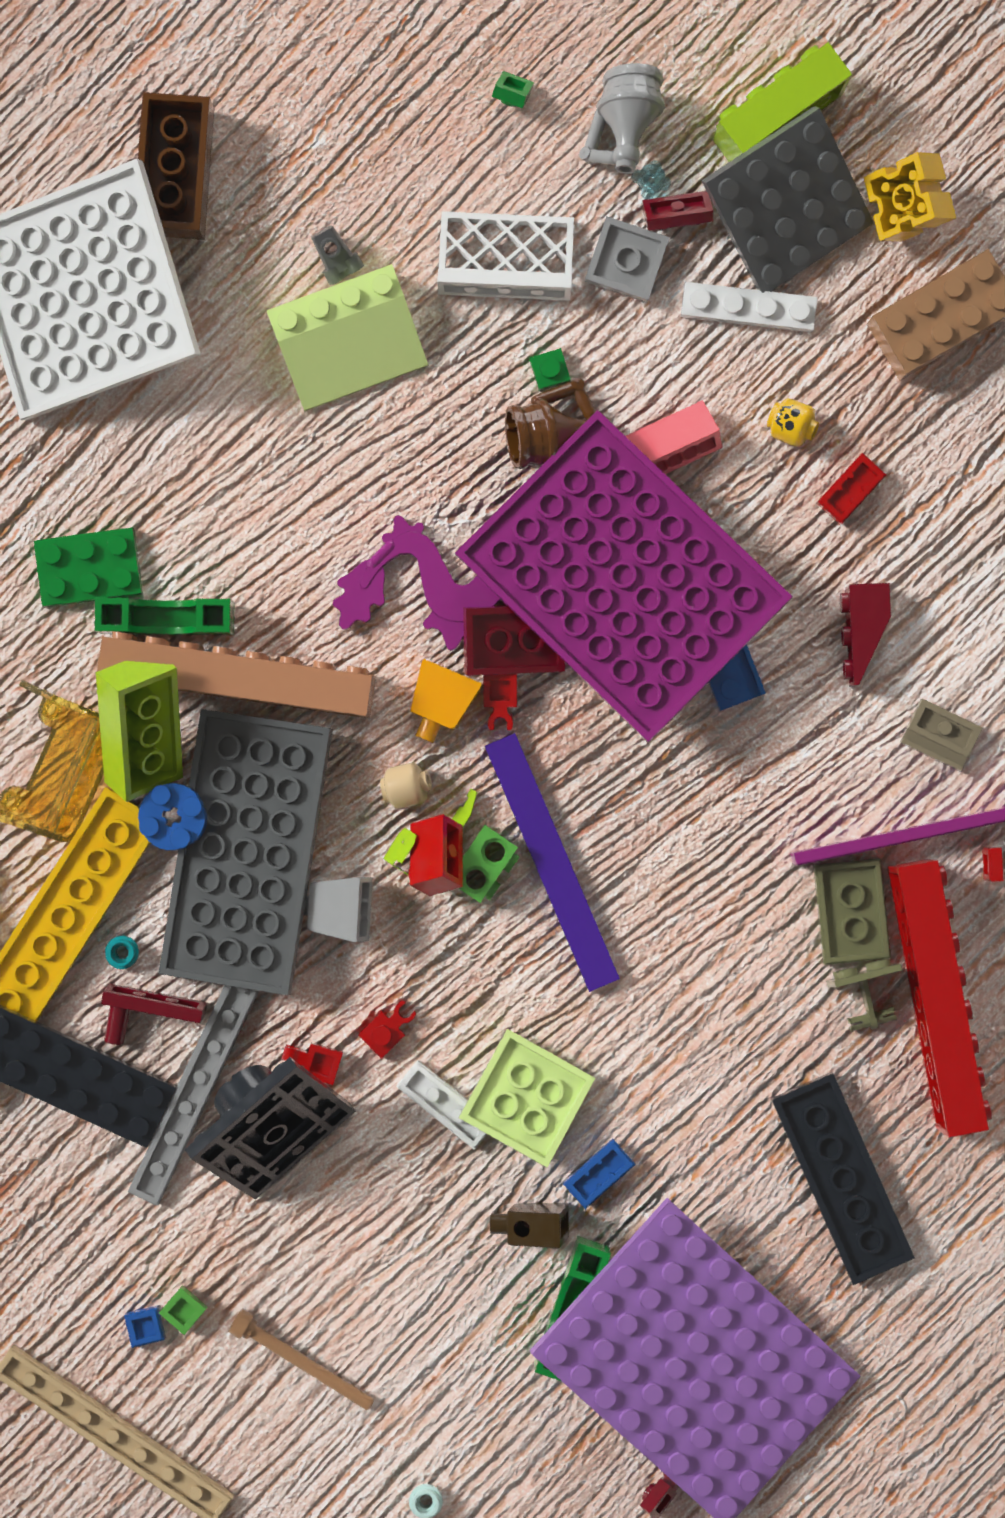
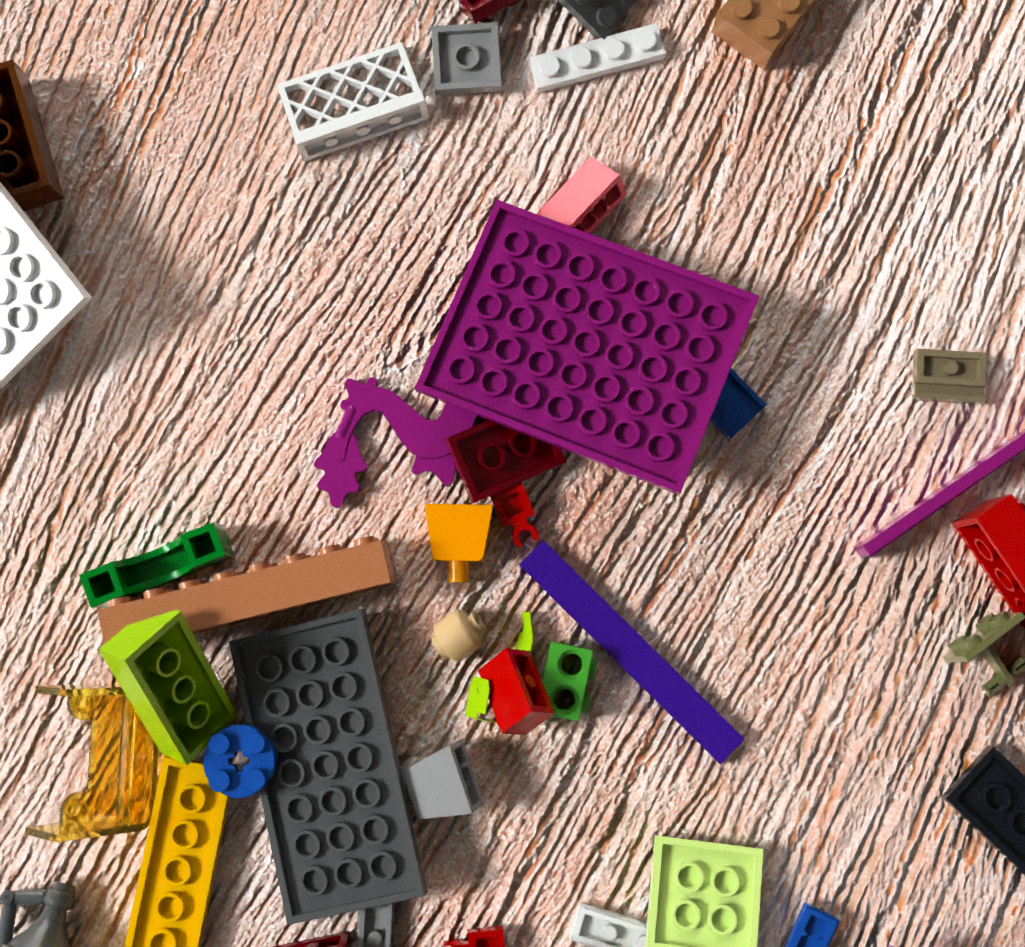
camera: 20 degrees left, 5 degrees down
(88, 567) = (67, 546): green plate -> none
(112, 956) = (234, 921): teal plate -> none
(340, 262) = (199, 165): dark grey plate -> none
(347, 337) = (232, 231): yellowish green slope -> none
(384, 1031) = (536, 887): red plate -> none
(539, 428) = (448, 240): reddish brown piece -> none
(549, 369) = (436, 187): green plate -> none
(792, 422) = (683, 143): yellow head -> none
(851, 489) = (764, 182): red plate -> none
(852, 911) = (938, 580): olive tile -> none
(866, 618) = (832, 297): dark red slope -> none

